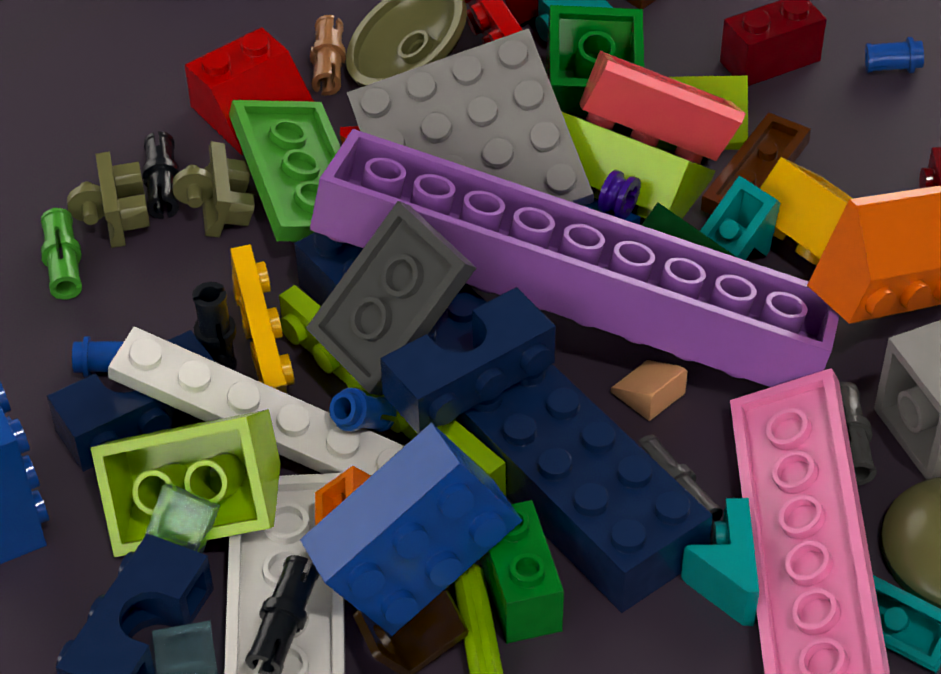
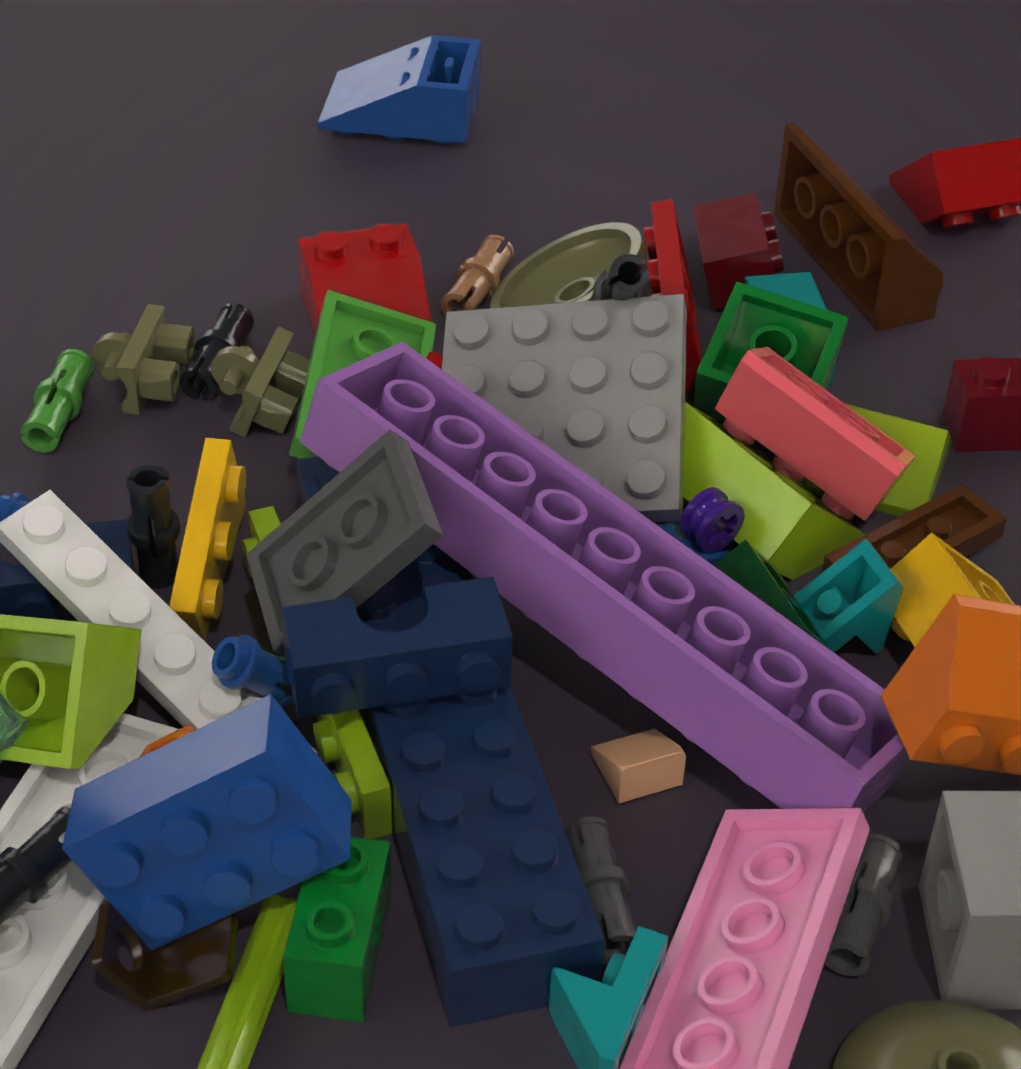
camera: 20 degrees right, 5 degrees down
(474, 33) = (622, 280): none -> black pin

